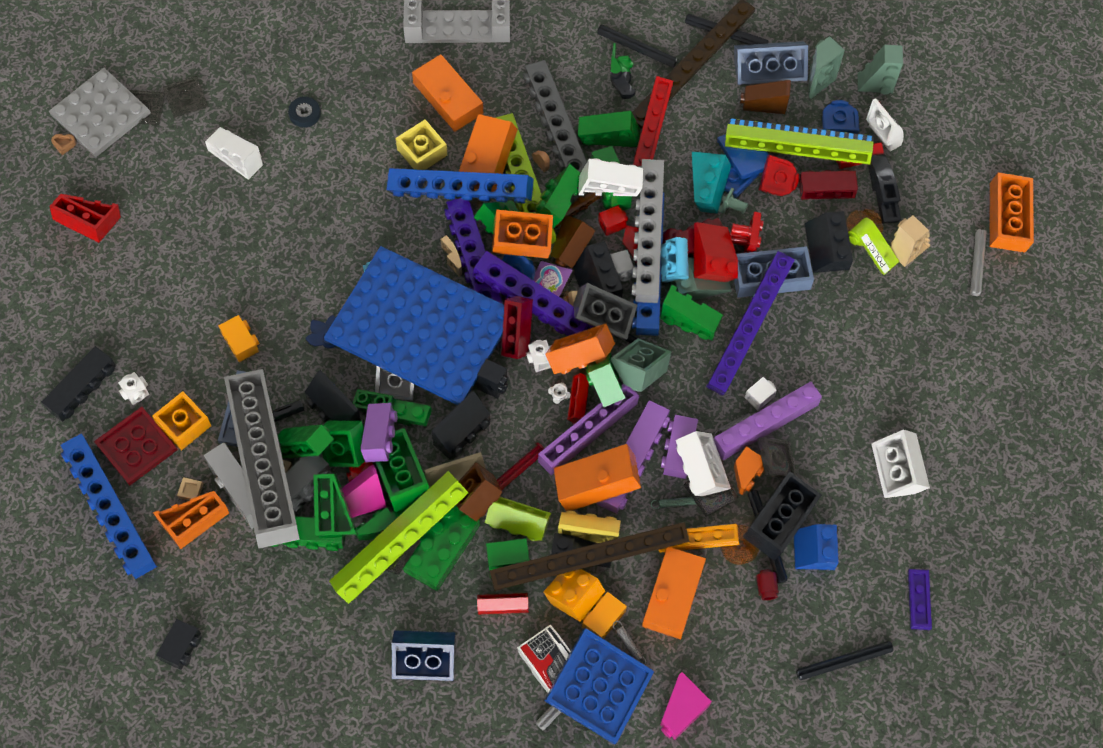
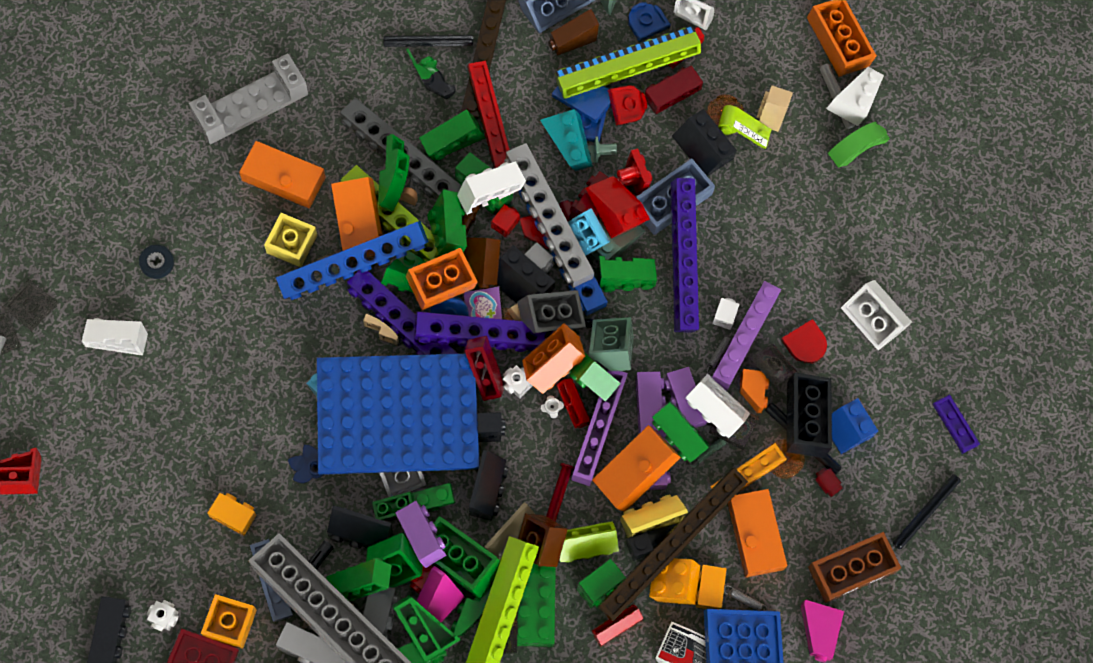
camera: 35 degrees left, 5 degrees up
(538, 133) = (394, 176): none -> green slope
(654, 467) = (679, 432): none -> green wedge
(745, 669) = (854, 567): none -> dark orange brick
(820, 457) = (806, 343): none -> red tile
(886, 188) = (726, 68): black slope -> none
(972, 307) = (858, 142): none -> bright green arch
(993, 268) = (857, 97): none -> white wedge

